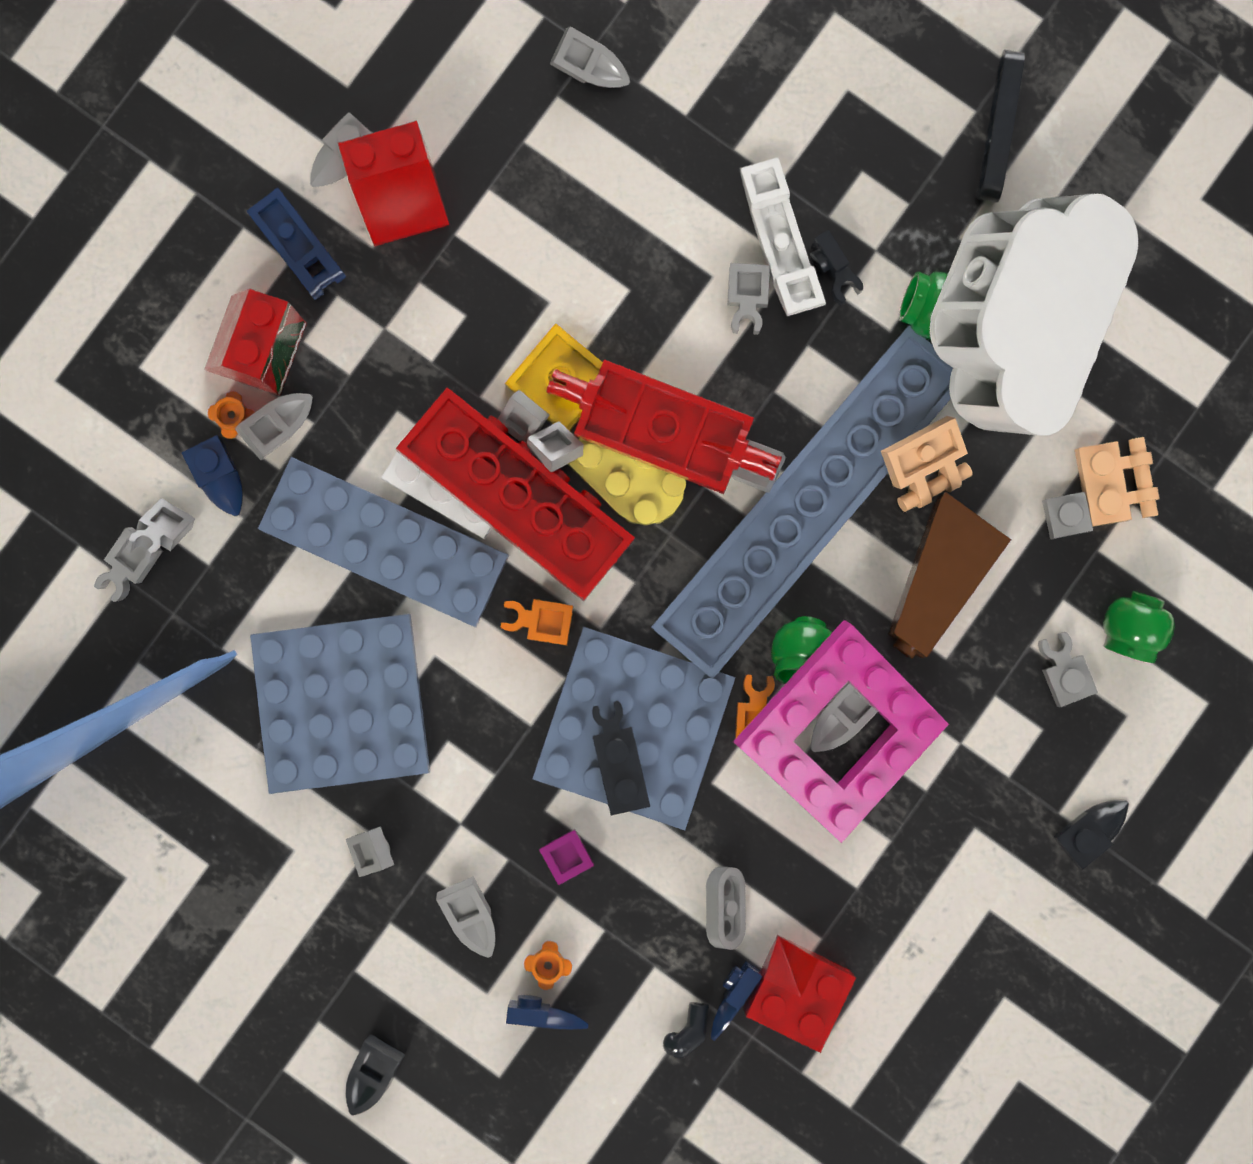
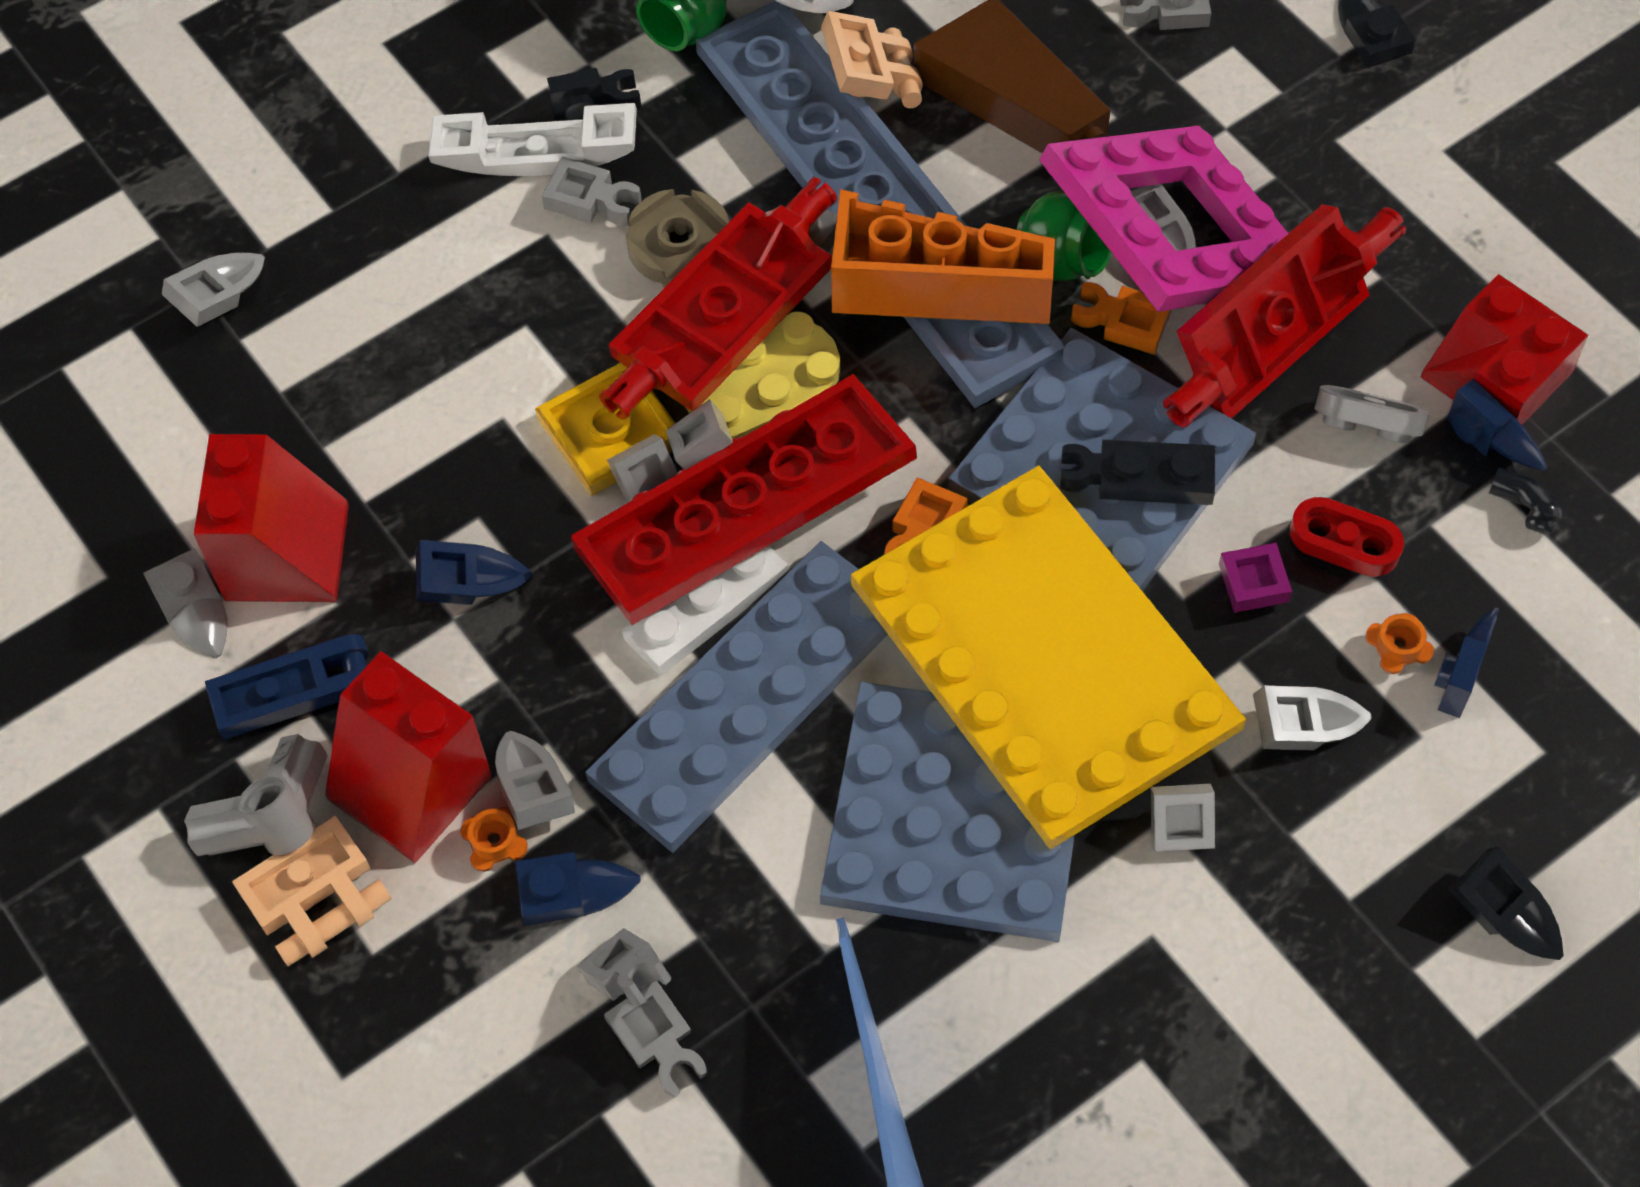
camera: 70 degrees left, 25 degrees down
(169, 306) = (292, 883): none -> light nougat plate
(194, 271) = (268, 811): none -> light grey piece
(412, 325) = (464, 571): none -> dark blue plate
(457, 731) = (1047, 655): none -> yellow plate
(618, 911) = (1347, 534): none -> red plate
(723, 351) = (667, 213): none -> dark tan plate
(735, 567) = (936, 266): none -> orange wedge
(780, 824) = (1277, 311): none -> red plate

